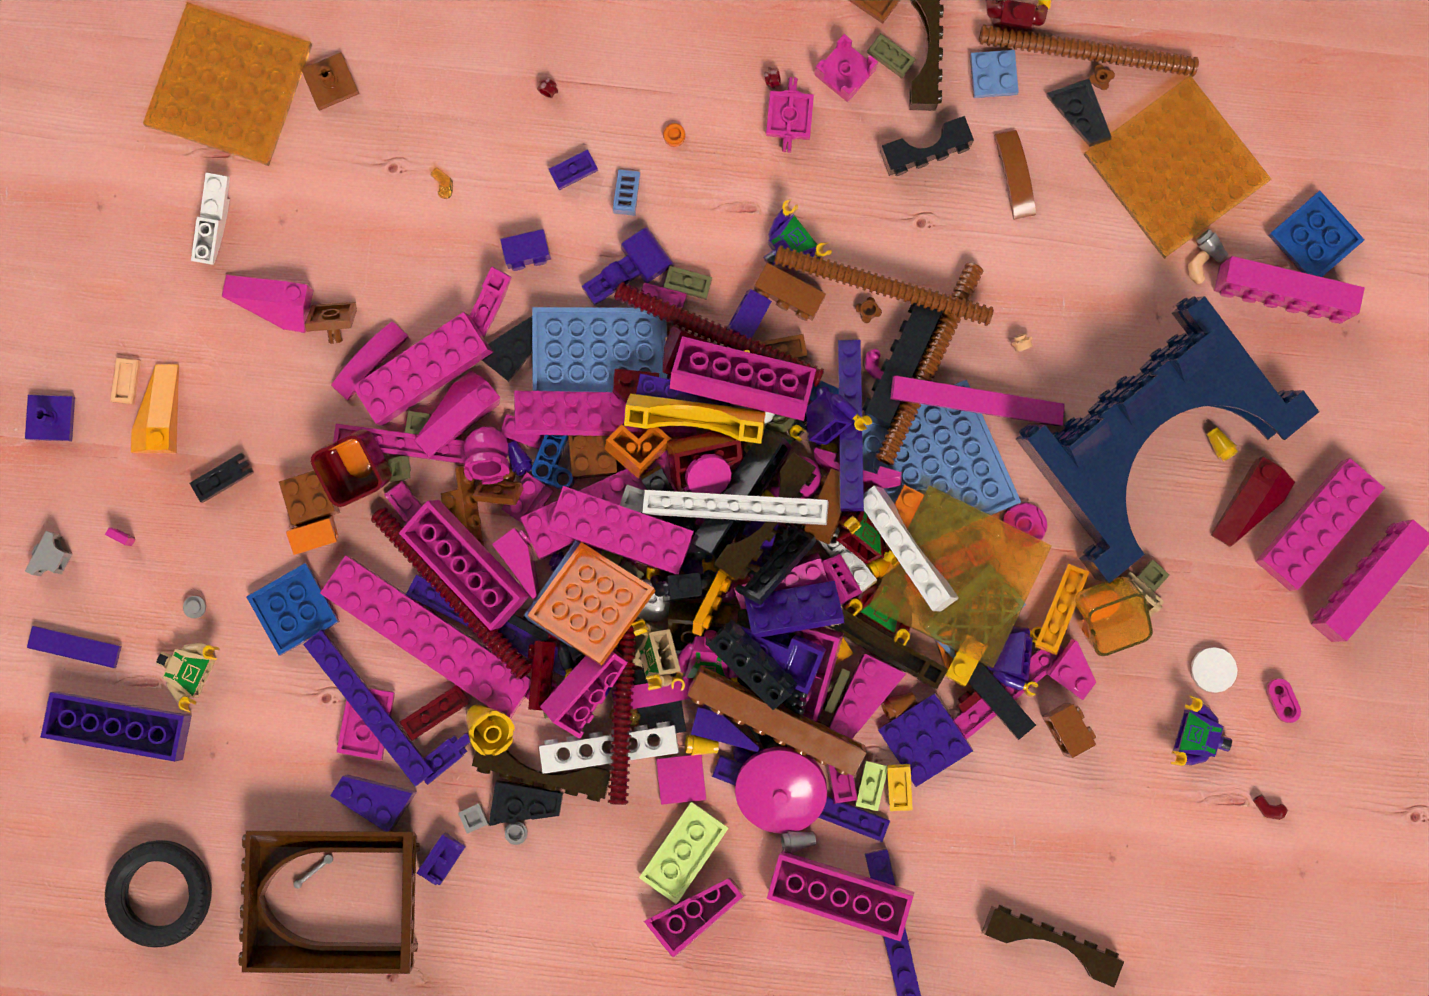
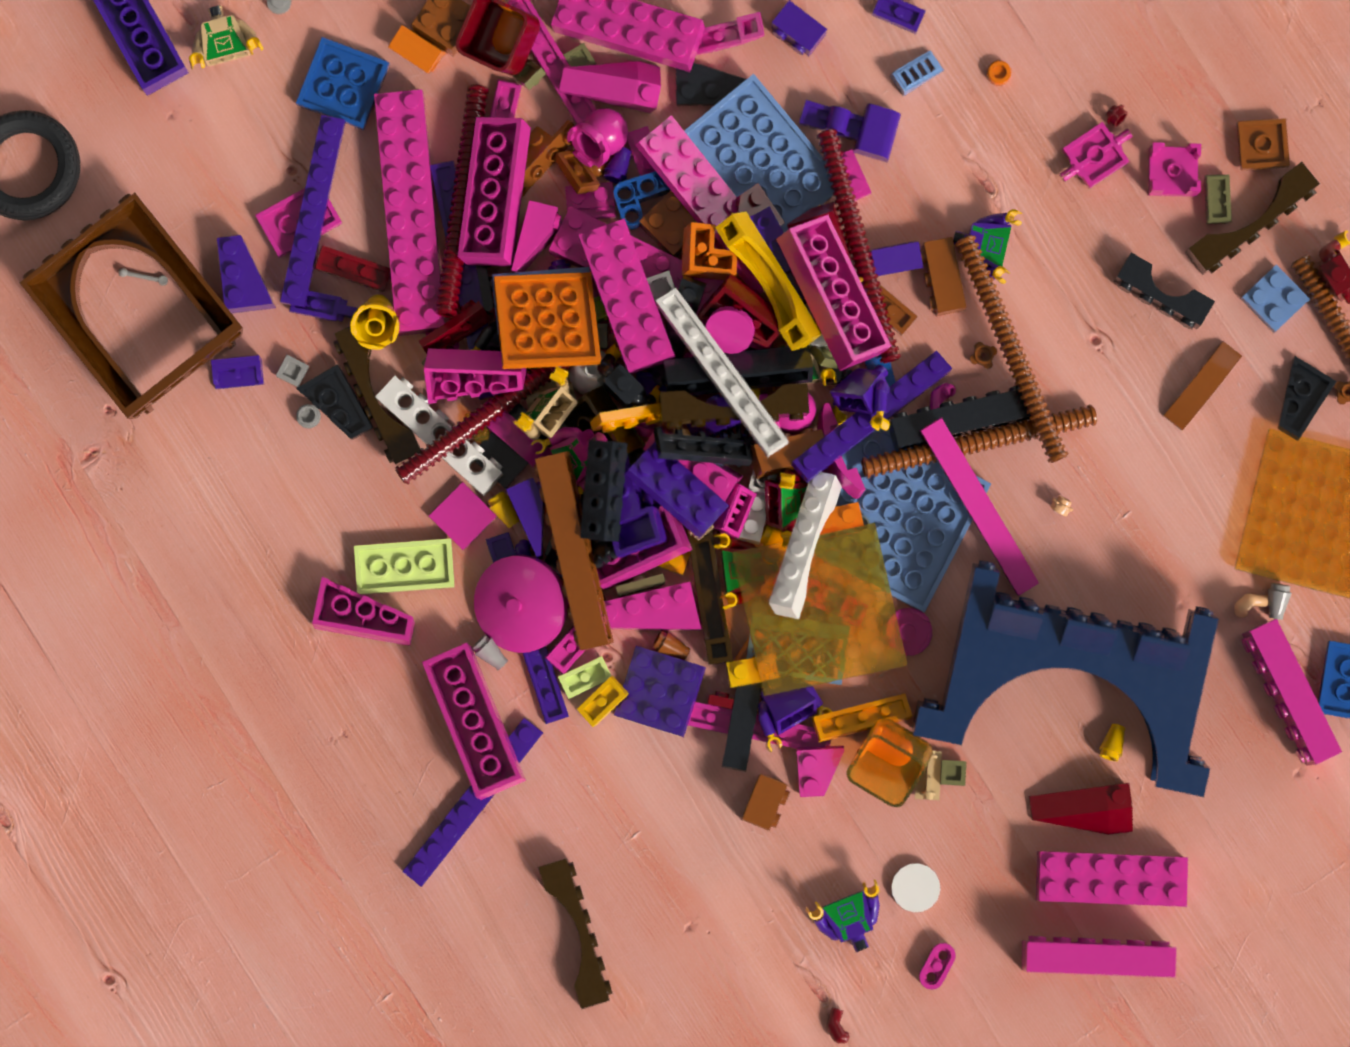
camera: 45 degrees right, 0 degrees up
(688, 282) = (882, 185): olive plate -> none

